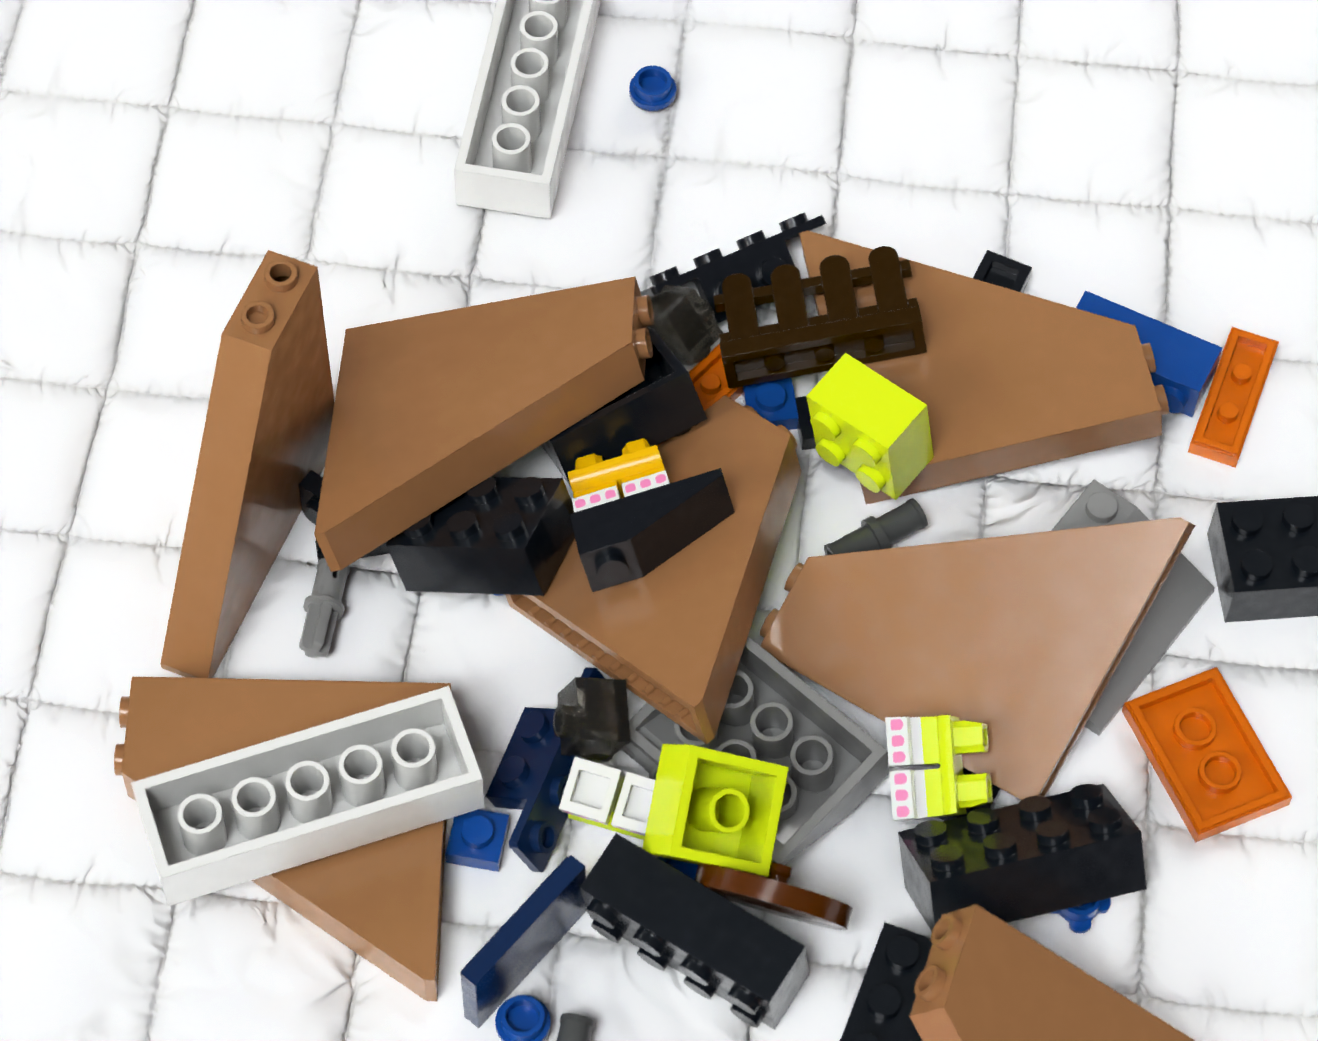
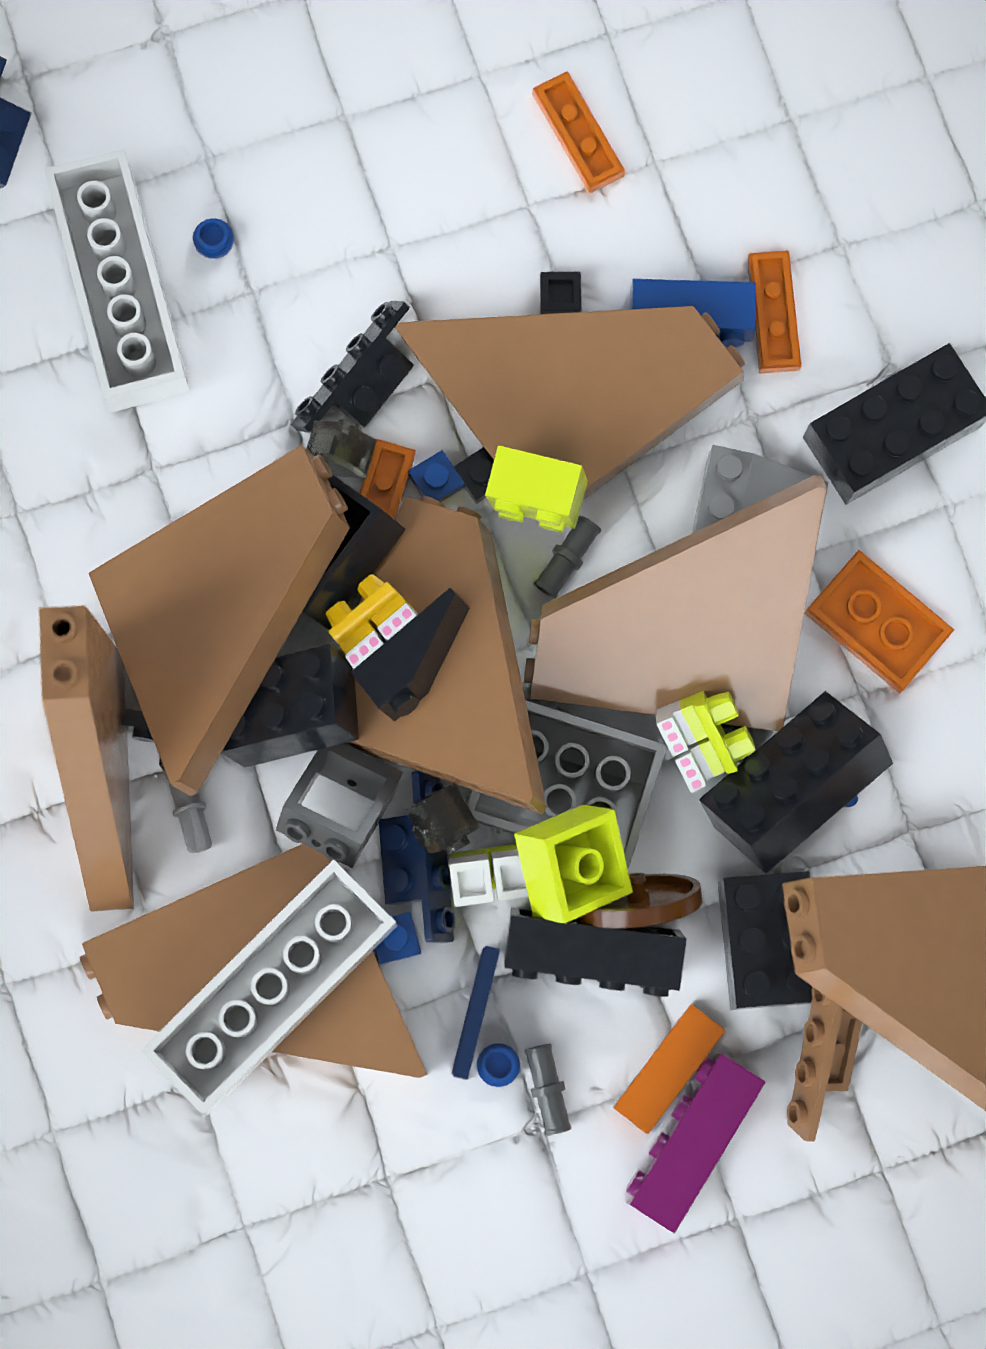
camera: 30 degrees left, 20 degrees up
(519, 637) = (354, 771): none -> dark grey window
(814, 344) = (478, 413): dark brown fence -> none
(1098, 145) = (578, 132): none -> orange tile

